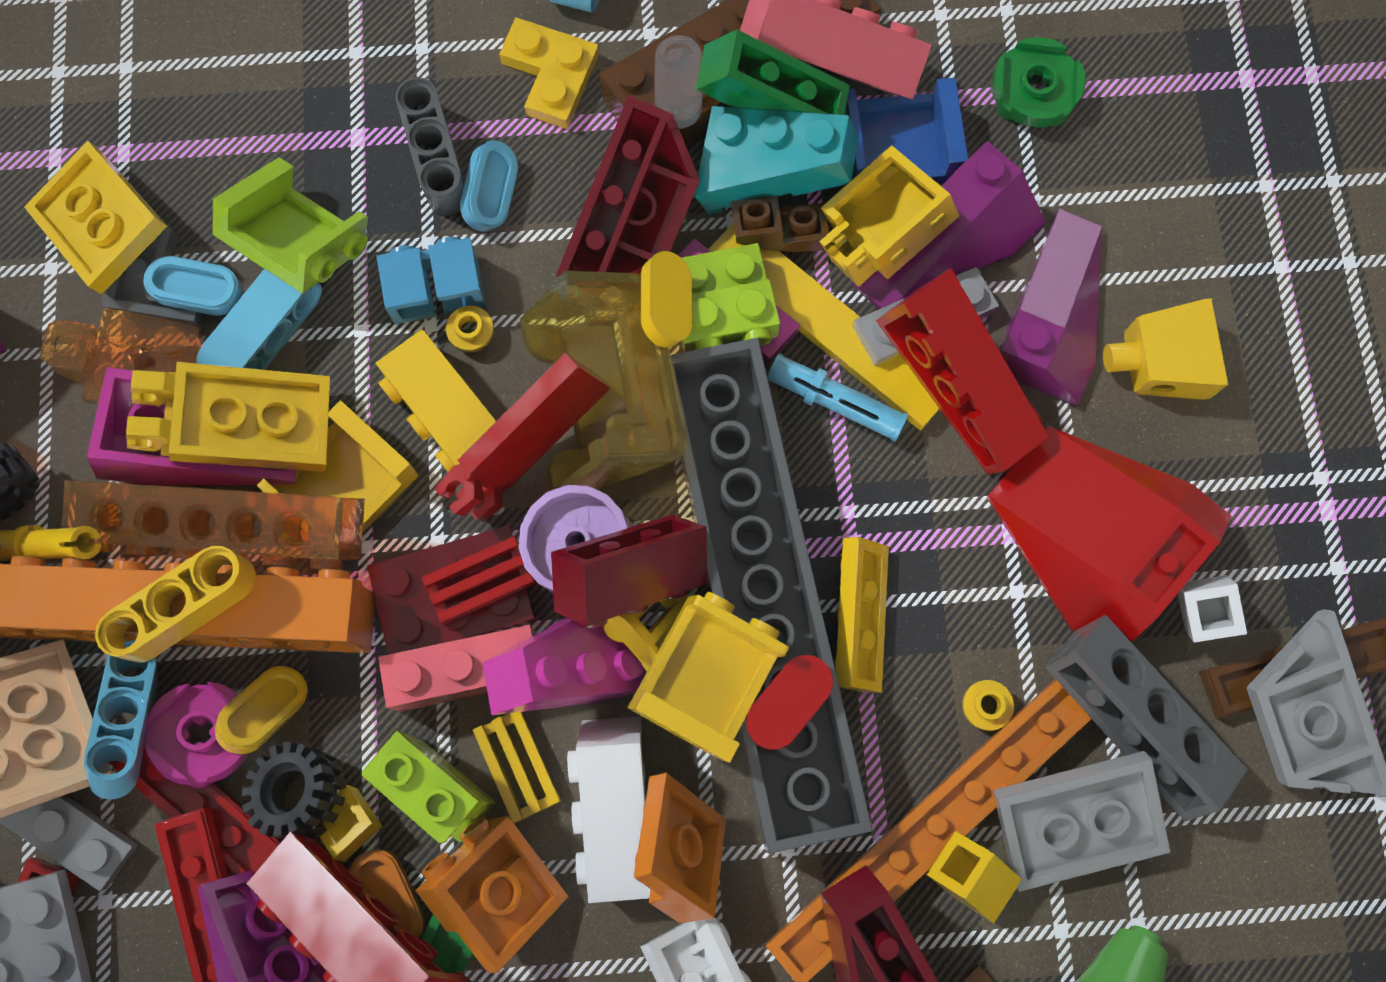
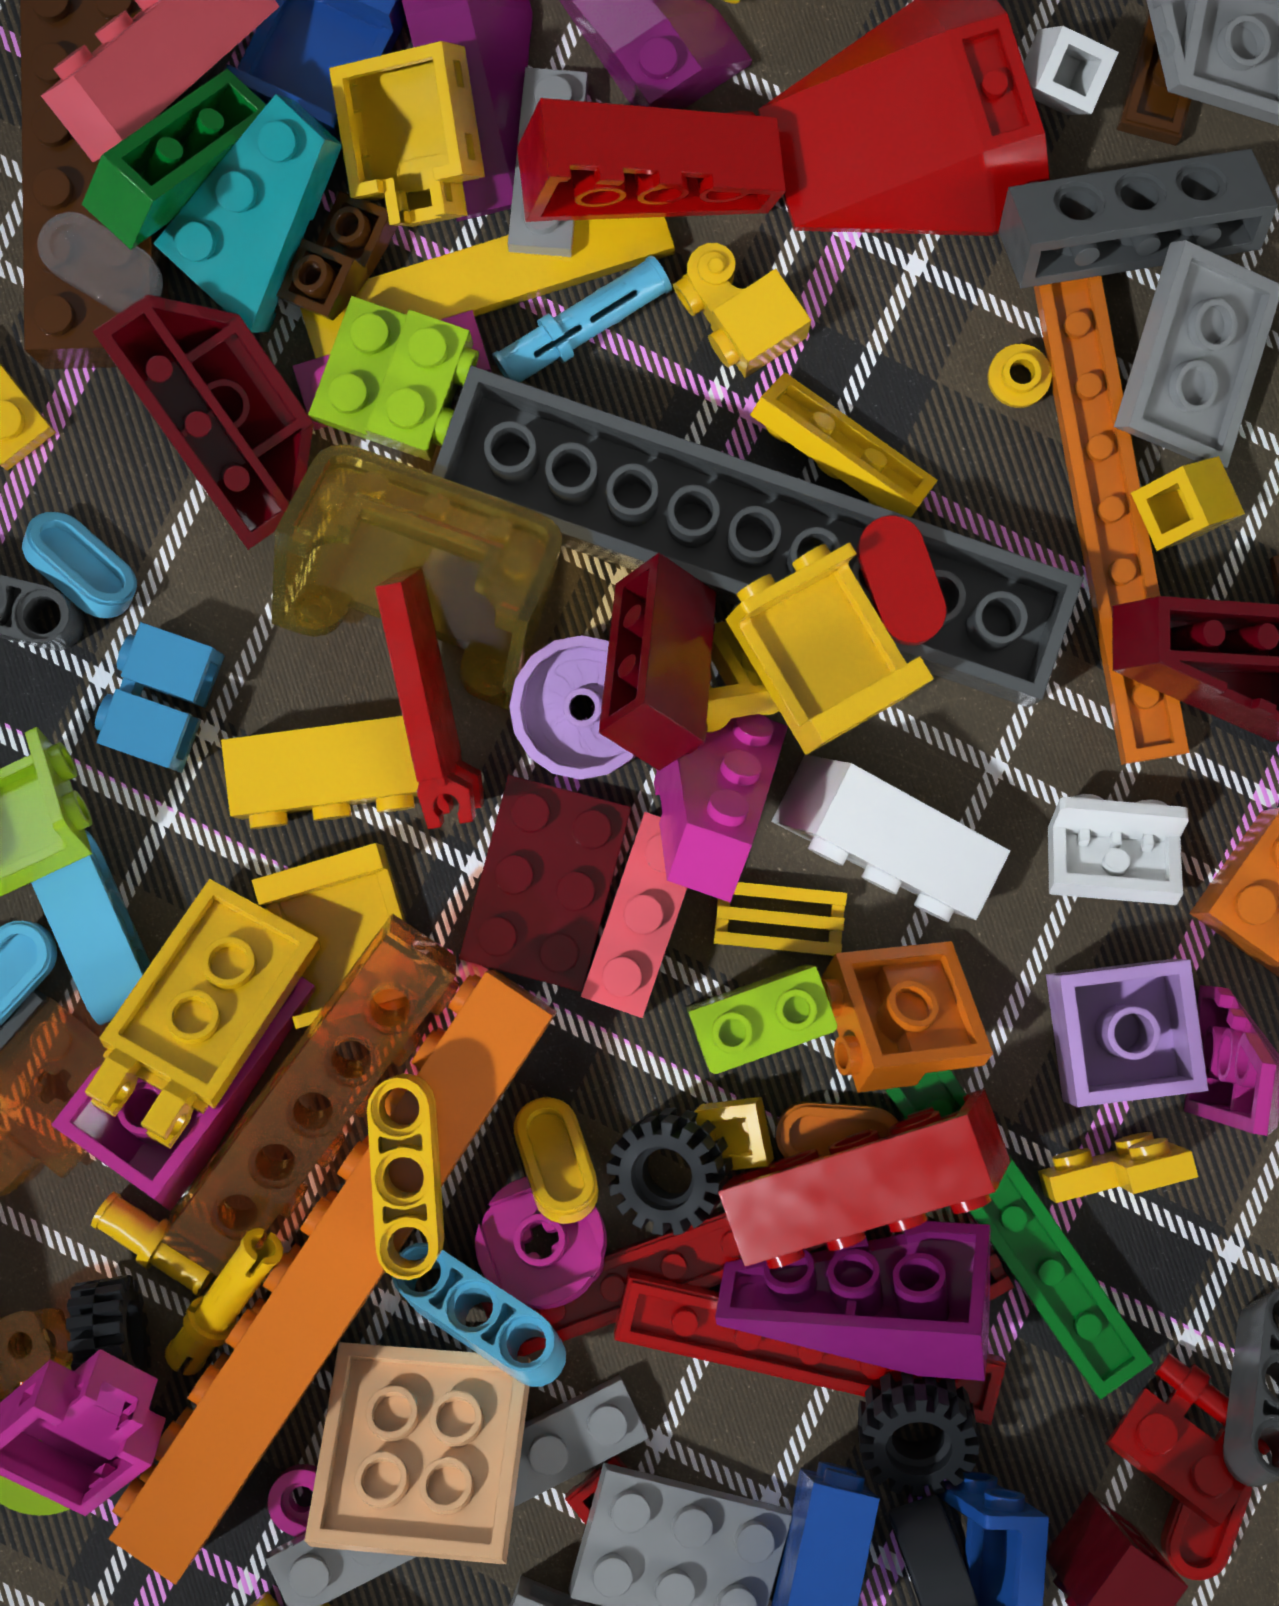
camera: 55 degrees left, 10 degrees up
(71, 466) = (143, 1237): none -> yellow pin
(468, 564) = (562, 787): red tile -> none
(469, 341) = (262, 696): yellow plate -> none
(666, 299) = (368, 438): yellow tile -> none
(679, 851) = (984, 790): orange plate -> none
(906, 504) = (747, 323): none -> yellow brick

